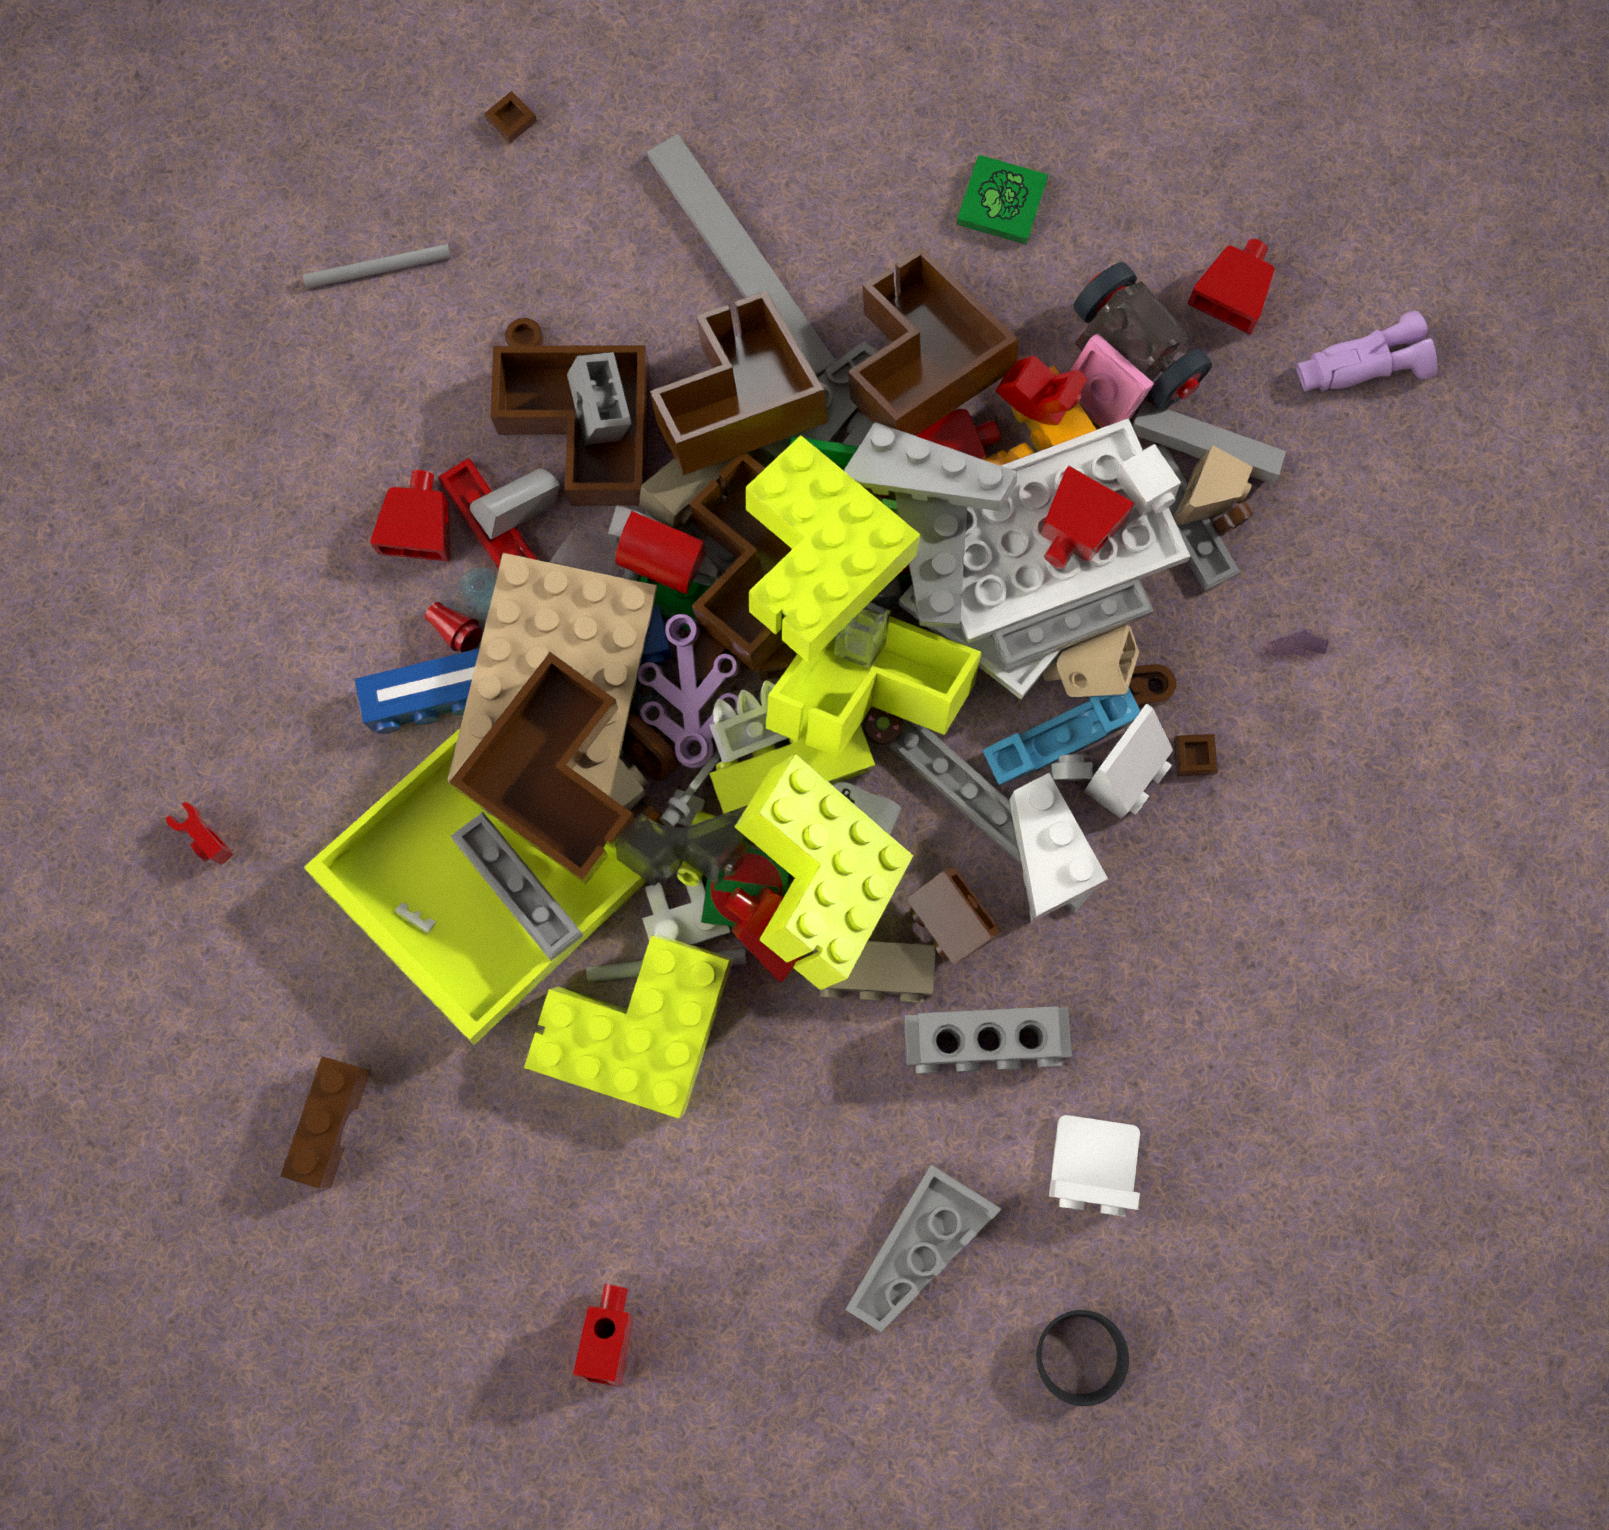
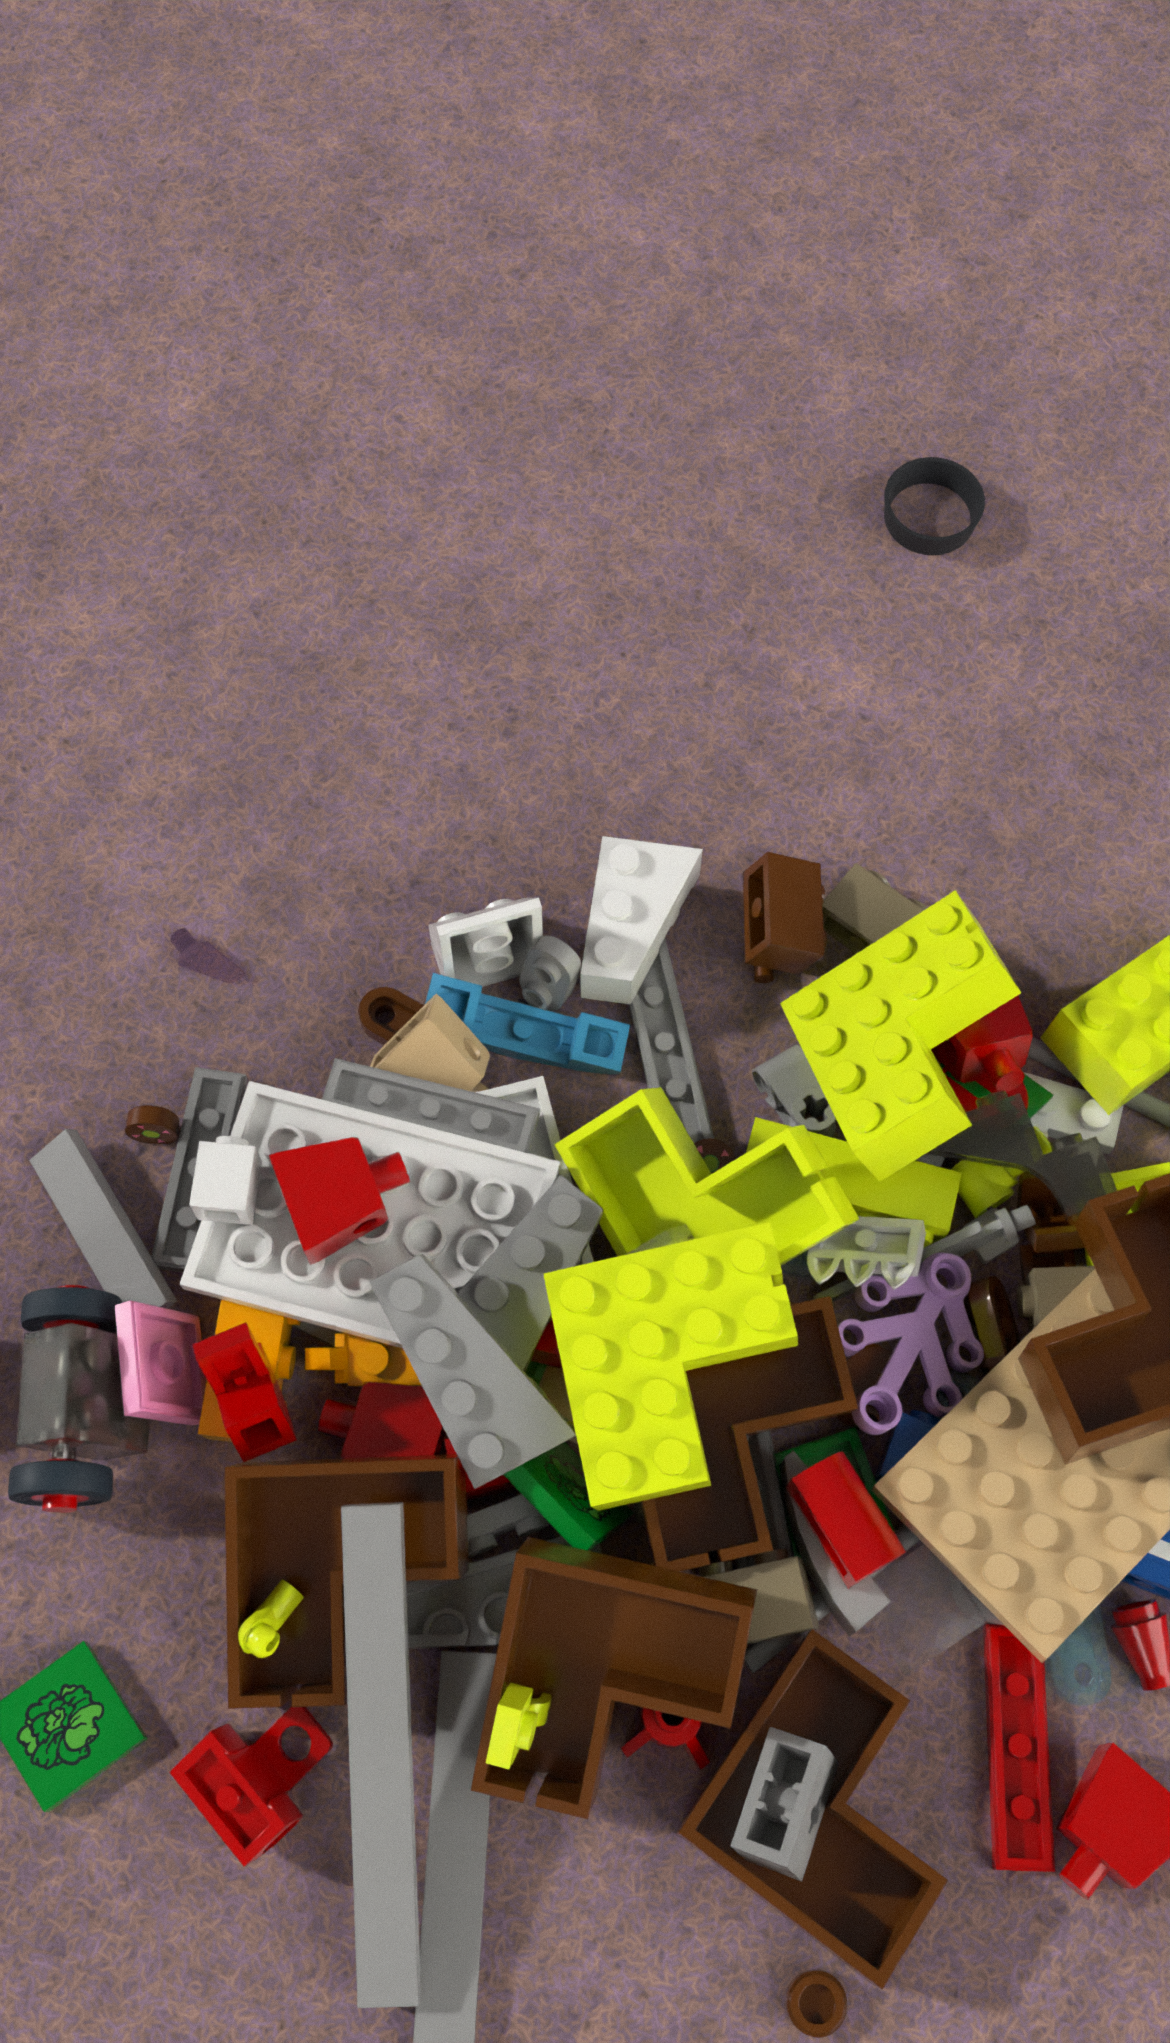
camera: 150 degrees left, 10 degrees down
(516, 502) = (975, 1751): light grey brick -> none
(766, 325) = (516, 1724): none -> neon yellow plate
(830, 279) = (380, 1756): none -> light grey tile
(885, 229) = (247, 1786): none -> red piece
(923, 1241) = (1011, 682): light grey wing -> none
(935, 286) = (259, 1631): none -> neon yellow arm
(1048, 1023) = (828, 798): light grey brick -> none
(1095, 1164) = (806, 632): white bracket -> none
(1195, 755) = (401, 924): reddish brown tile -> none
(1213, 486) = (143, 1167): tan slope -> none

